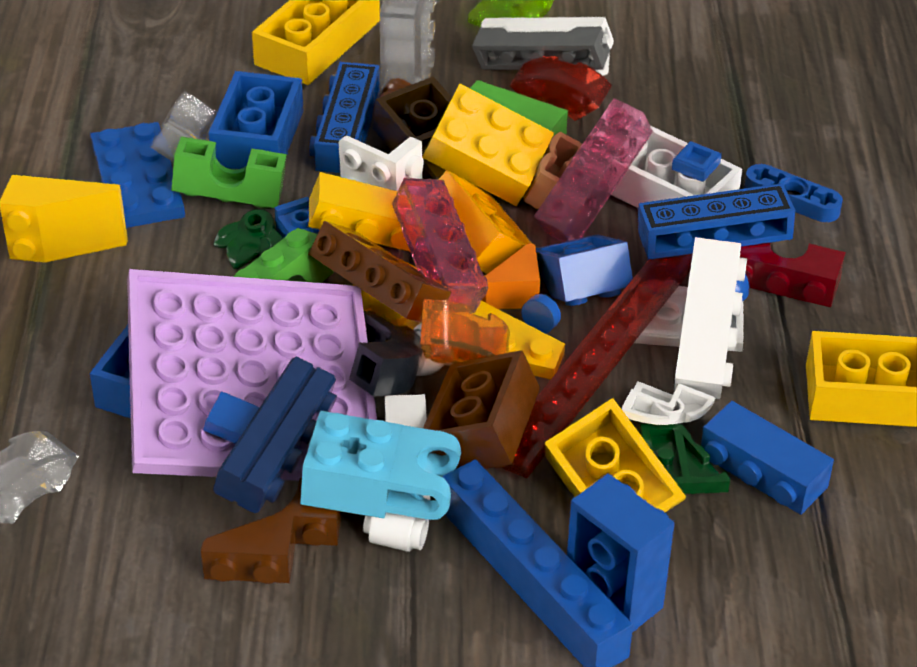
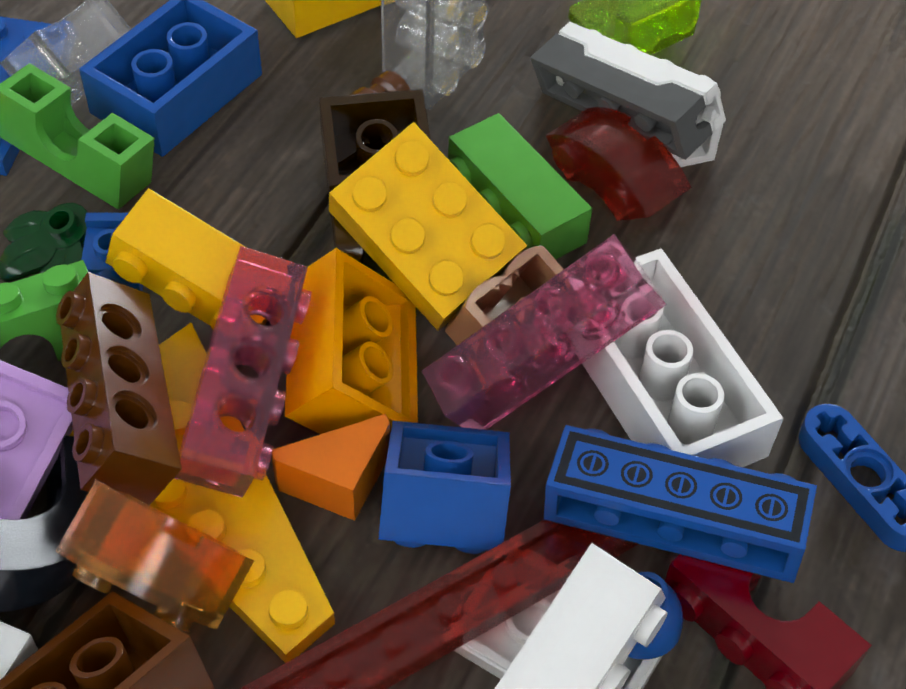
camera: 25 degrees right, 10 degrees up
(345, 112) = (284, 116): blue brick -> none
(377, 168) = (274, 223): white bracket -> none
(541, 313) = (335, 541): blue tile -> none
(696, 161) = (713, 379): blue tile -> none

